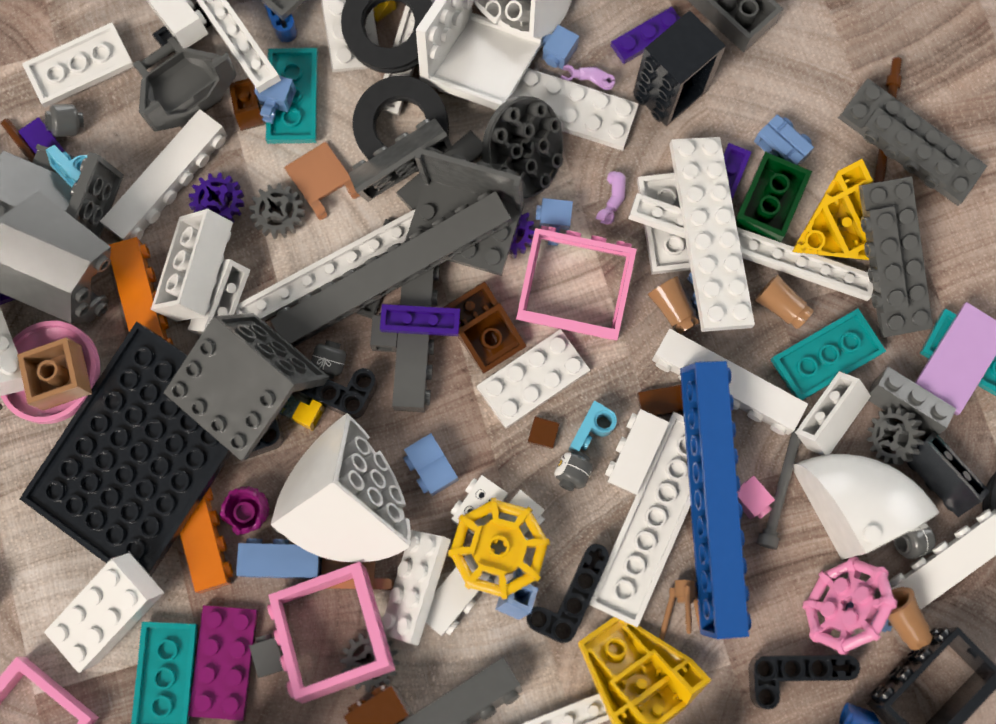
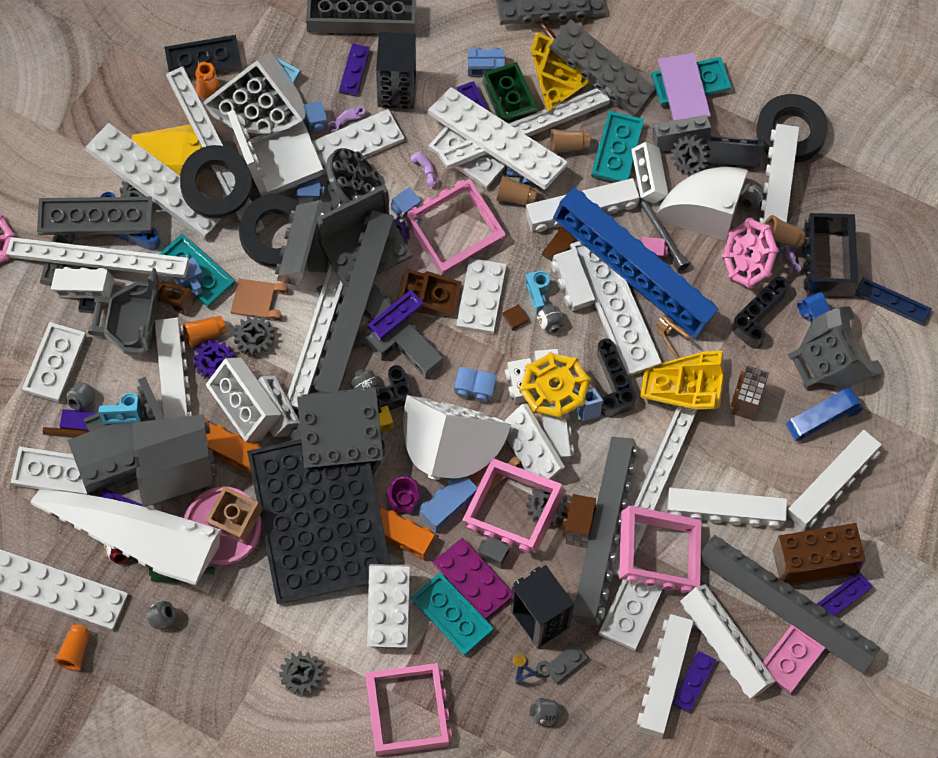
camera: 45 degrees left, 10 degrees down
(236, 161) = (204, 330): none -> orange plant
(474, 117) = (310, 191): none -> medium blue brick
(890, 648) = (791, 258): none -> lavender arm

